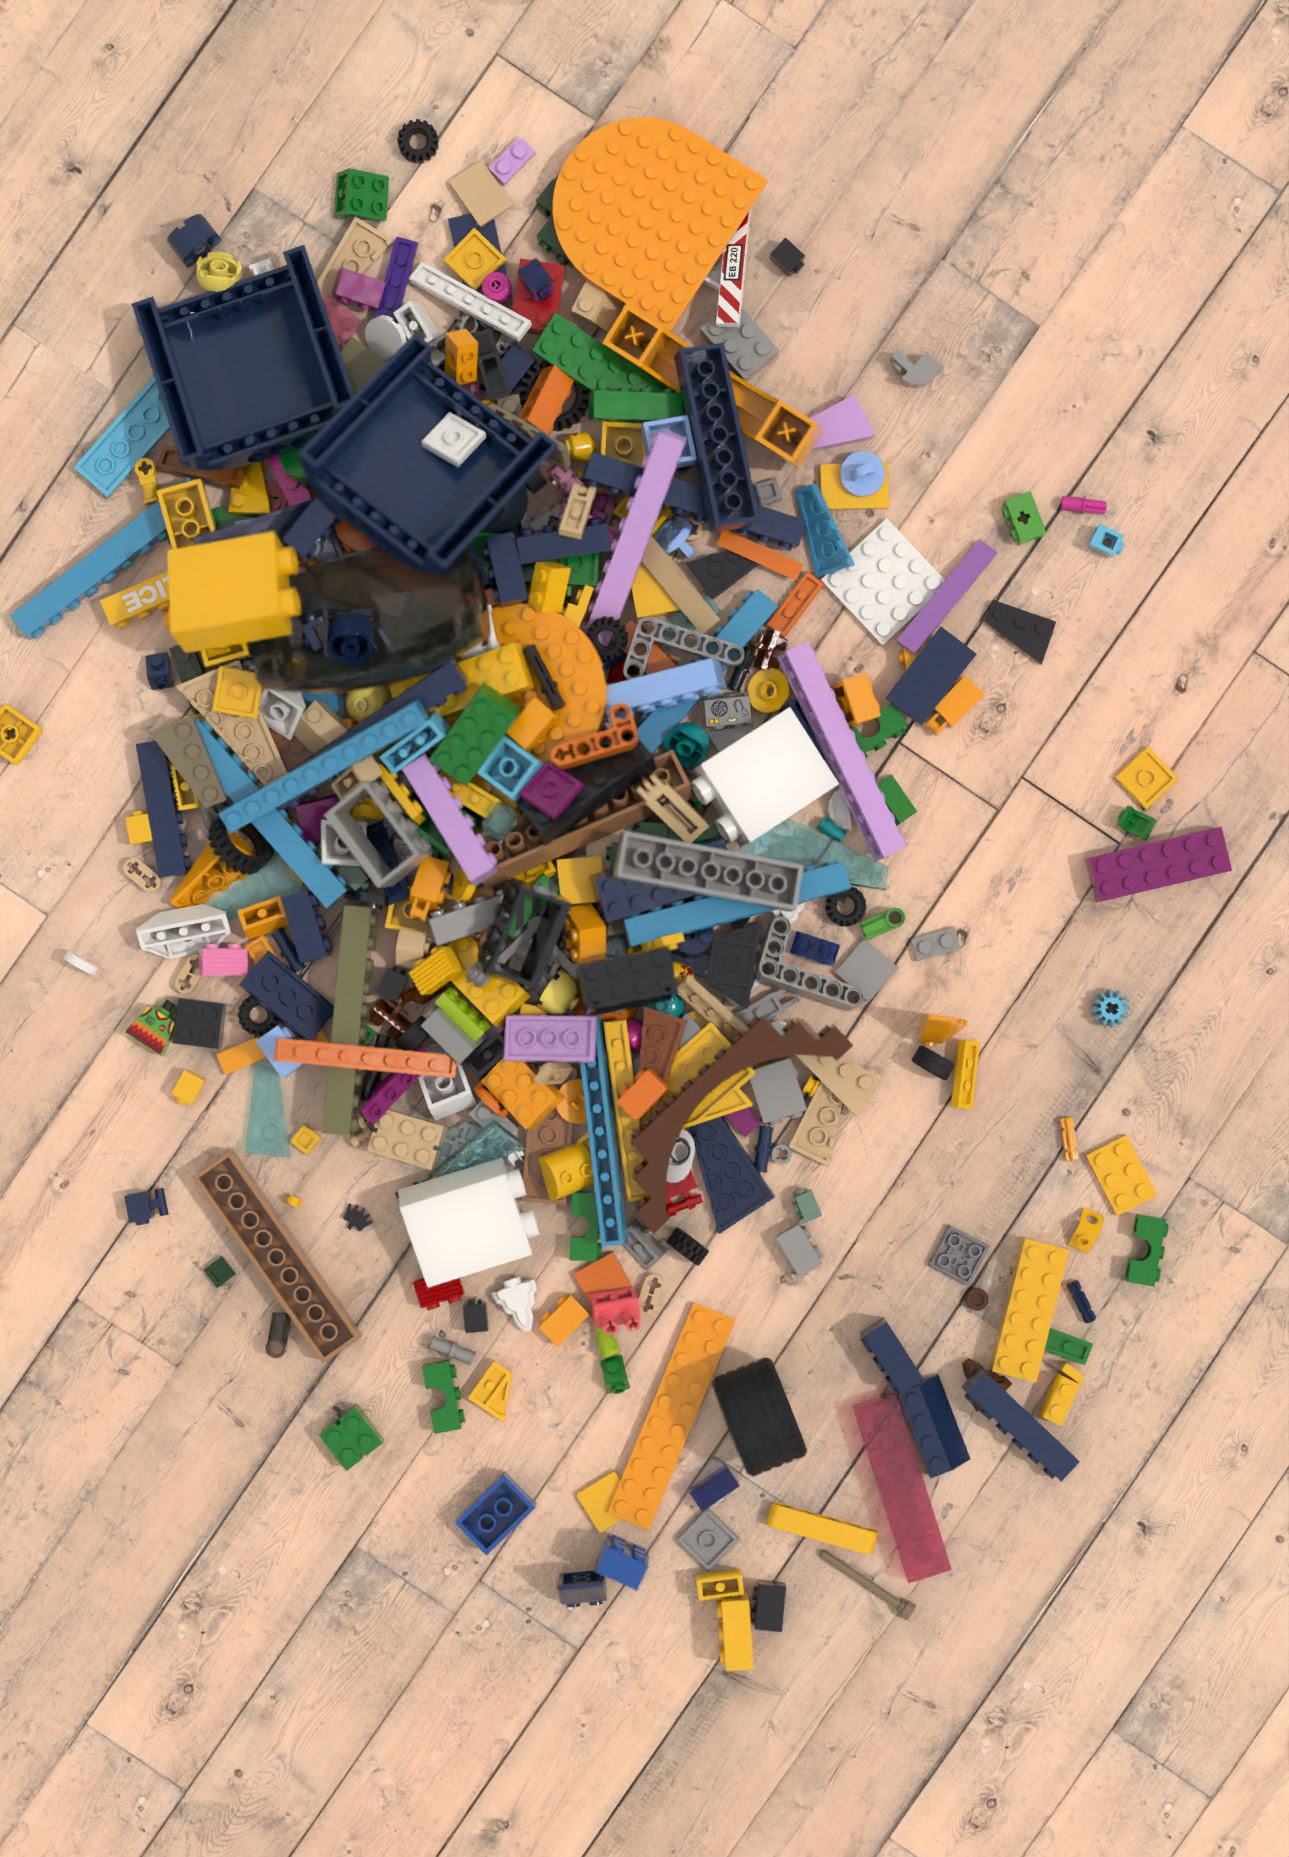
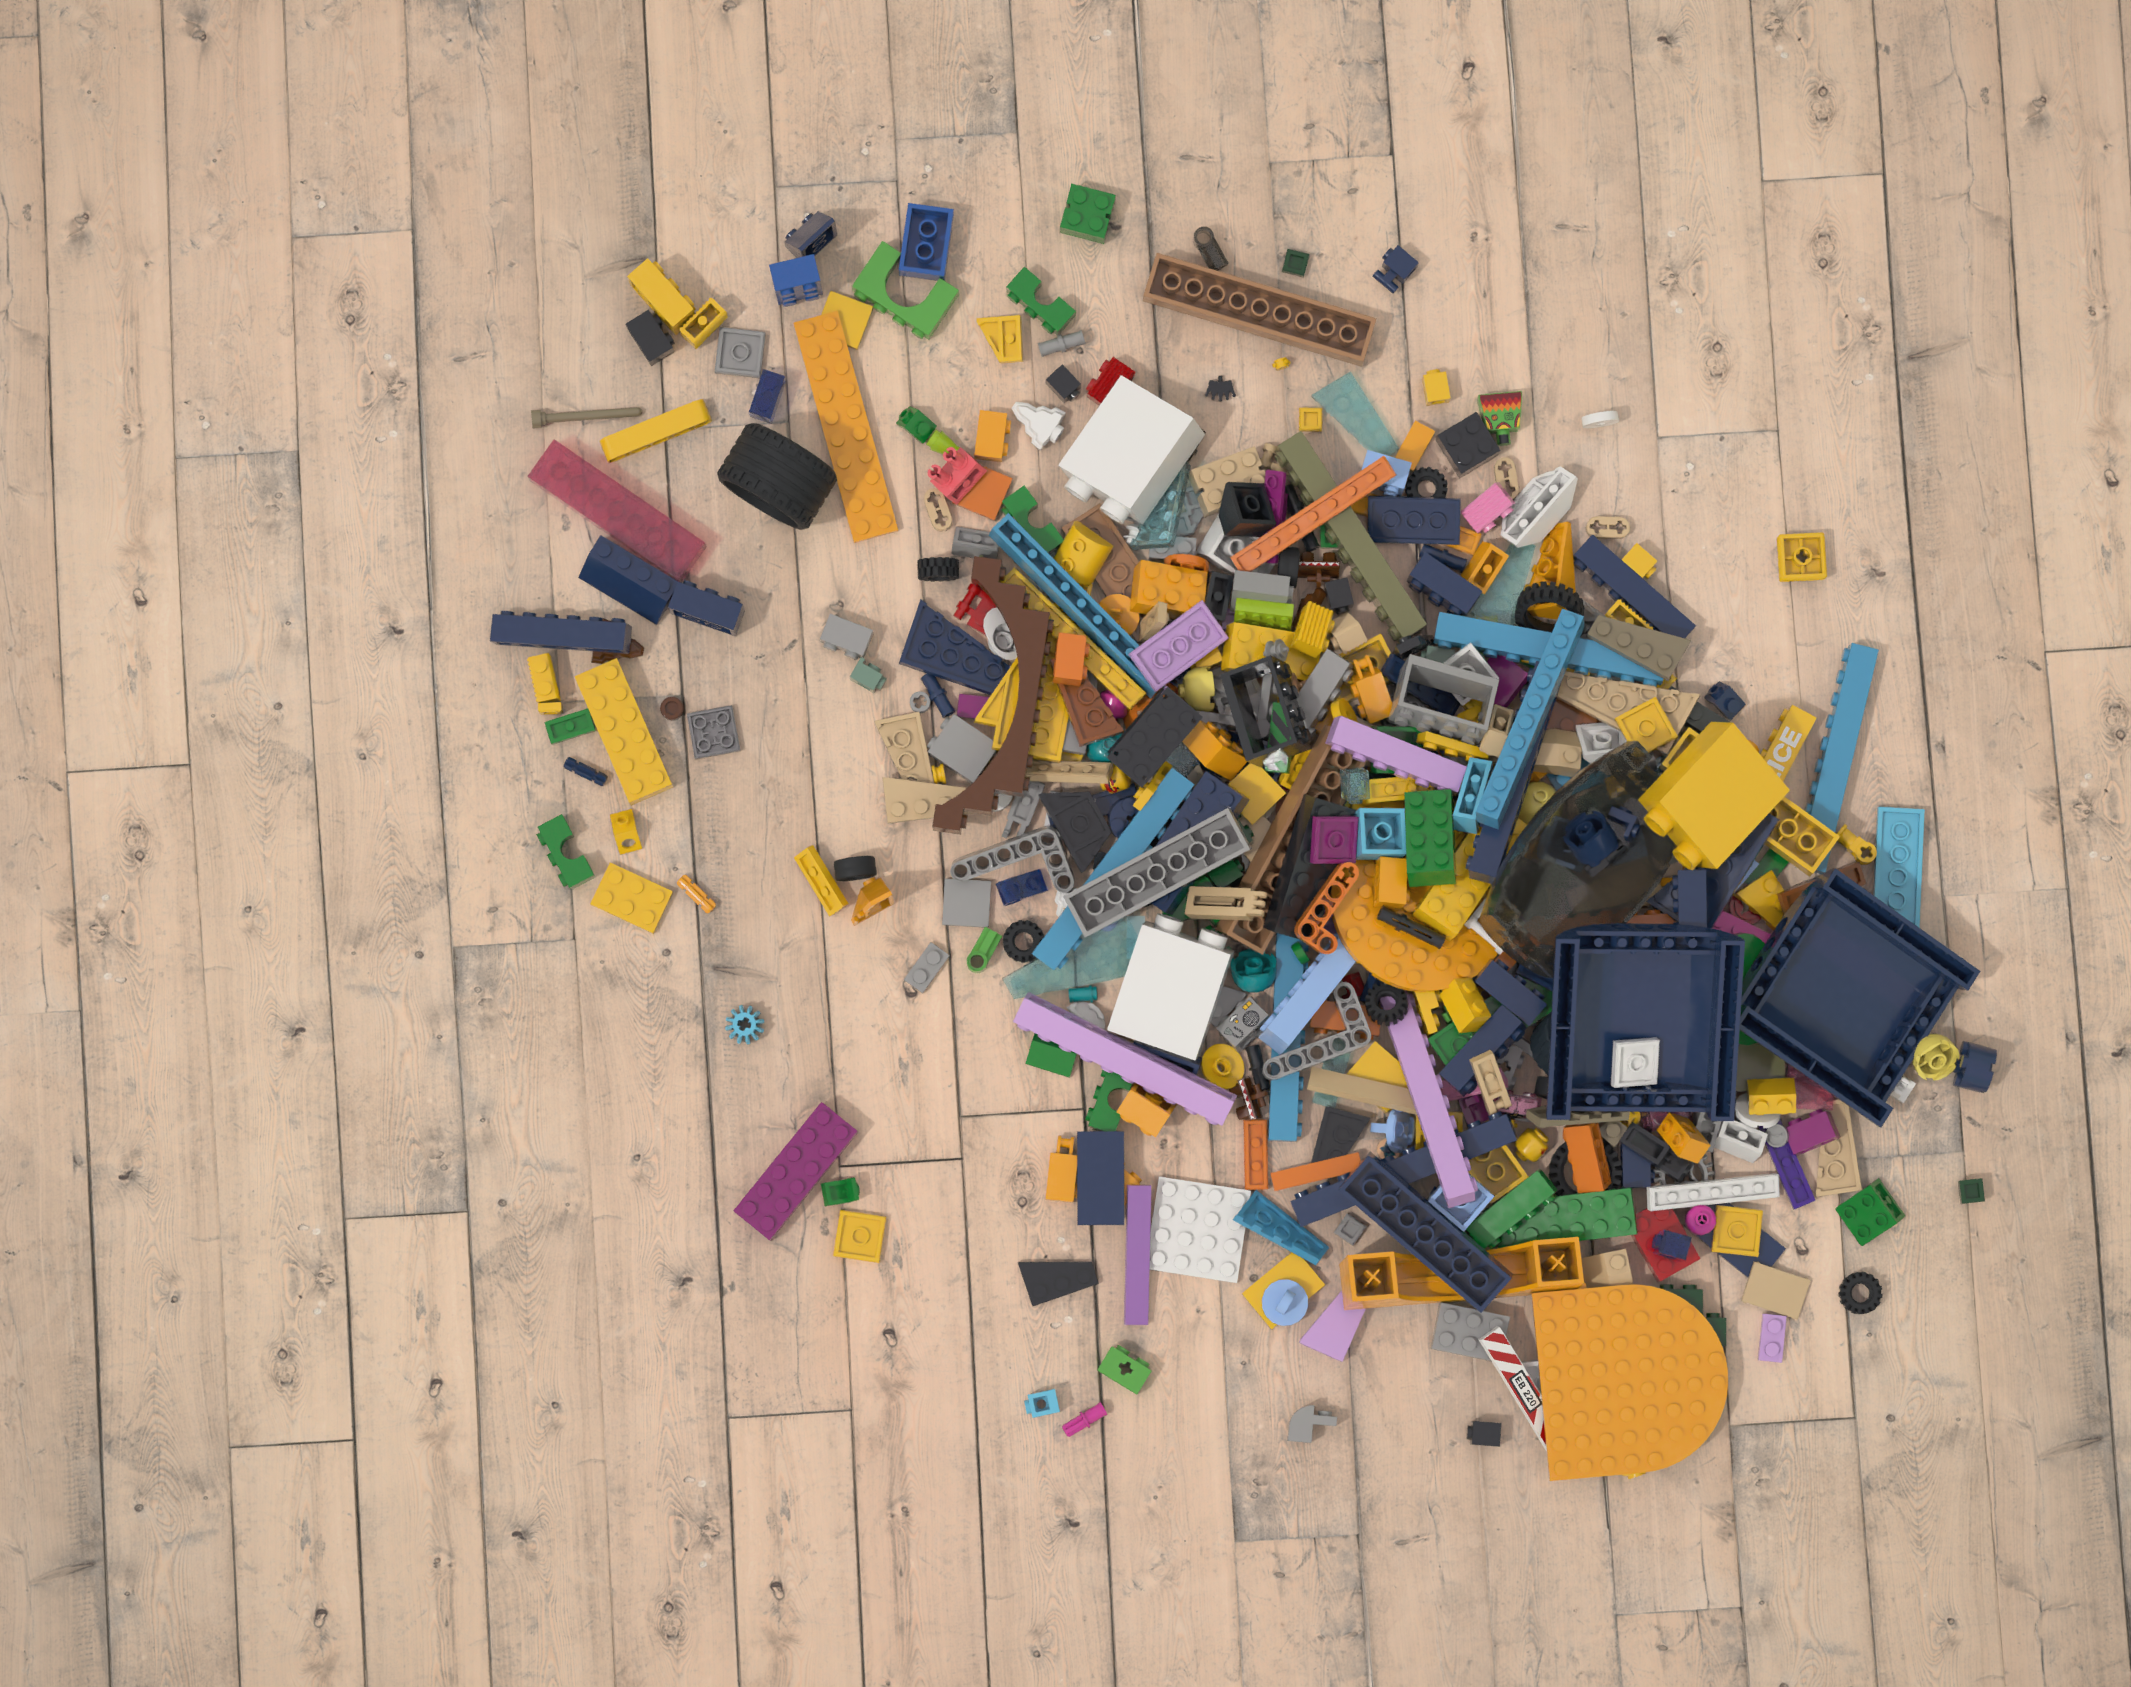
camera: 135 degrees right, 5 degrees down
(272, 150) = (1971, 1191): none -> dark green tile
(367, 337) = (1771, 1096): none -> yellow brick
(386, 305) = (1777, 1135): none -> light grey piece
(414, 1104) = (1245, 510): none -> black slope
(545, 1455) = (921, 318): none -> bright green arch
(642, 728) = (1300, 953): none -> green tile

